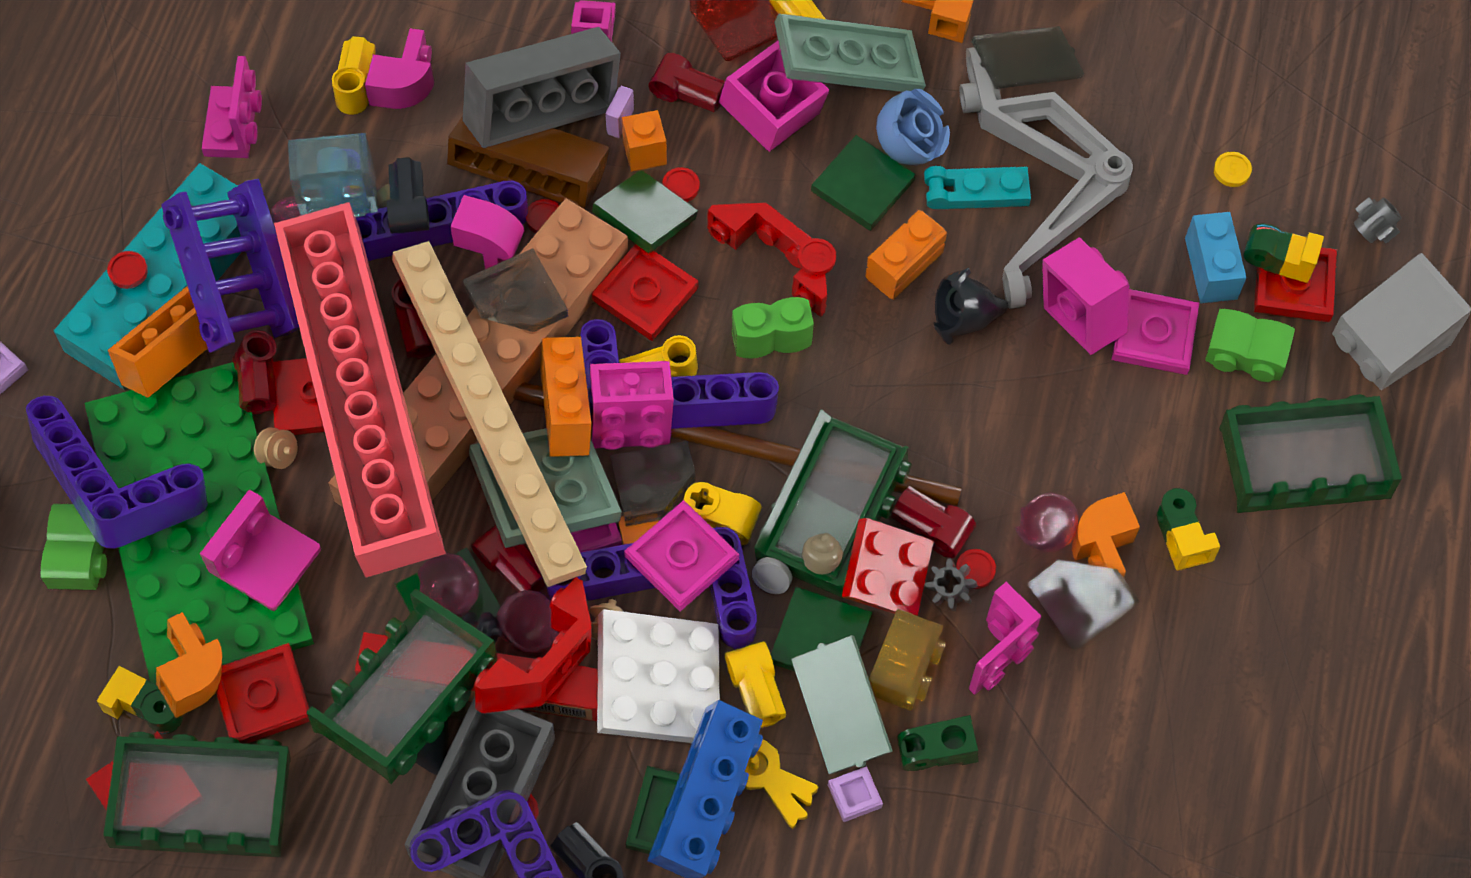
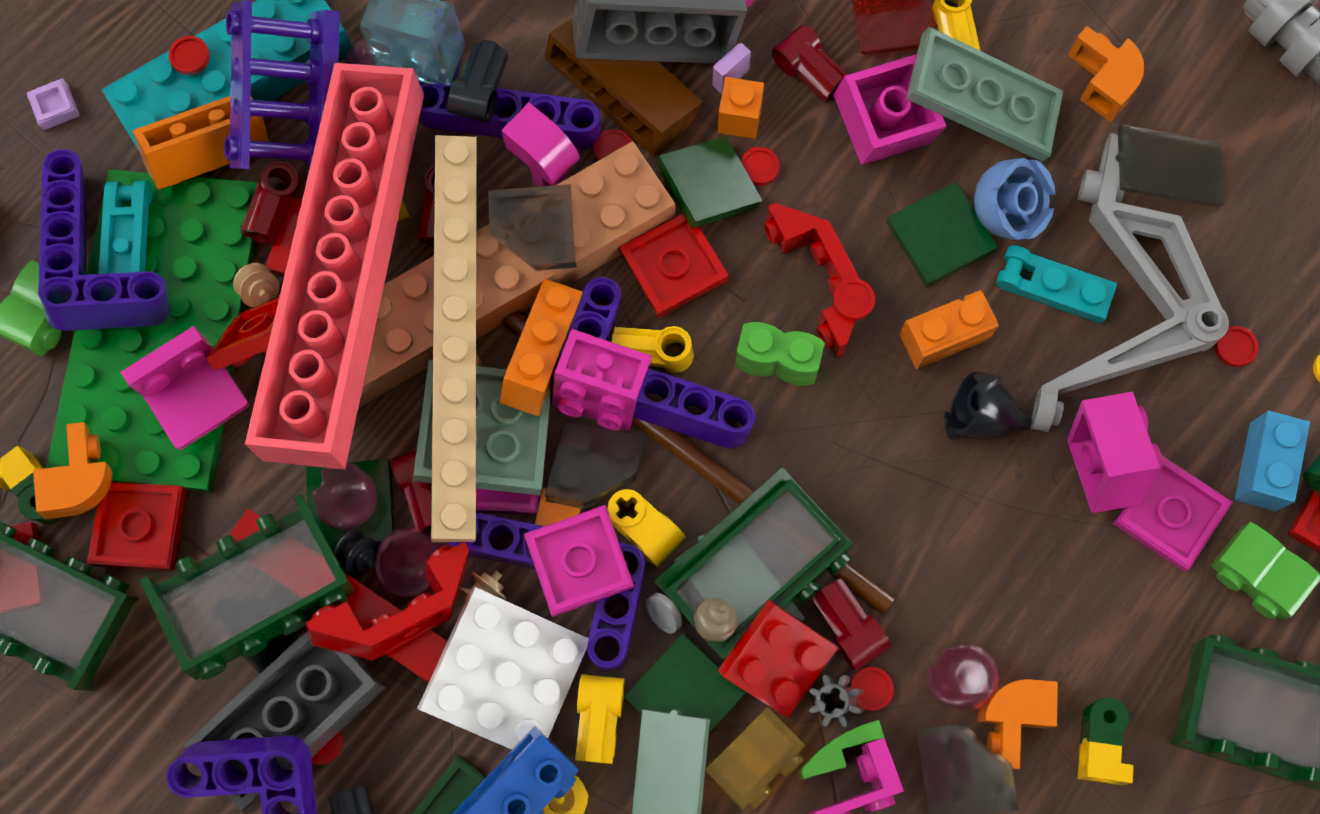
camera: 30 degrees right, 10 degrees up
(131, 440) = (124, 228): none -> teal plate
(300, 480) = (244, 336): none -> red plate
(969, 628) = (831, 756): none -> bright green slope
(1147, 182) = (1237, 347): none -> red piece

